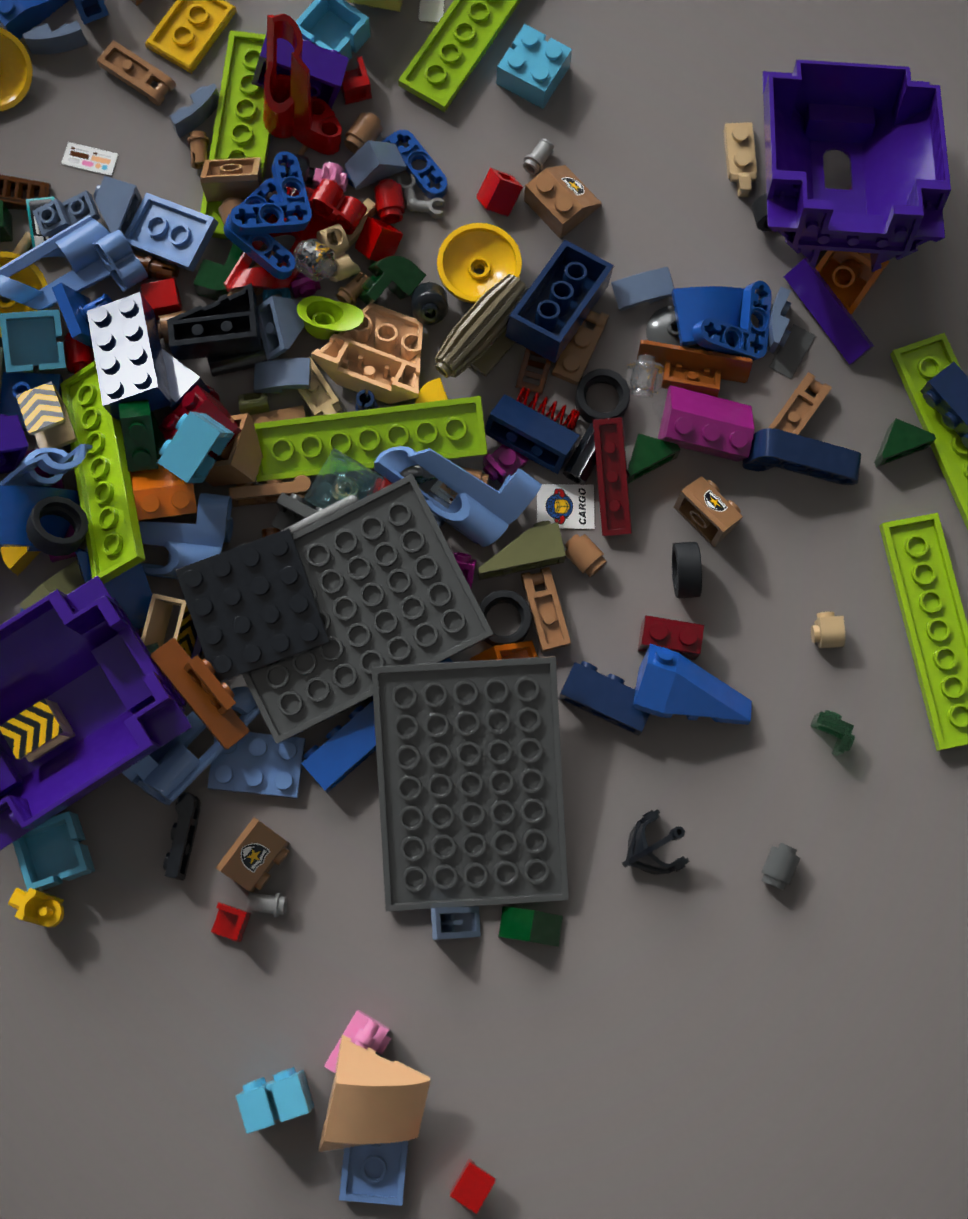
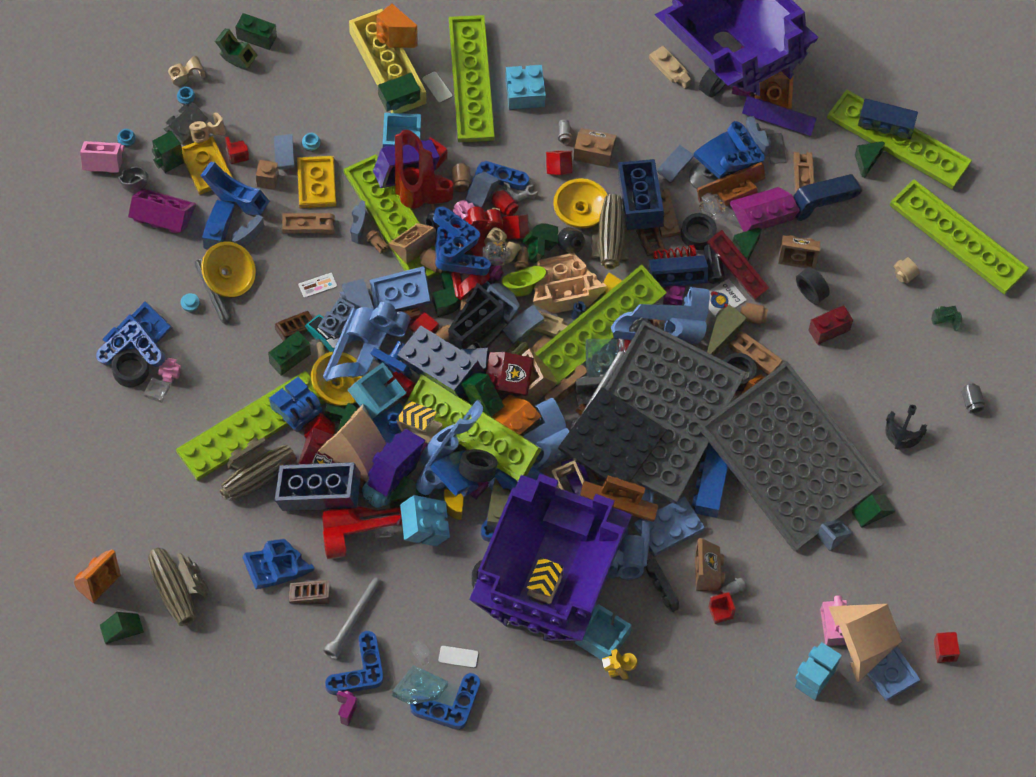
camera: 35 degrees left, 15 degrees down
(189, 449) = (522, 376): medium azure piece -> none
(603, 697) = (826, 373): dark blue brick -> none
(678, 686) = (852, 343): blue wedge -> none

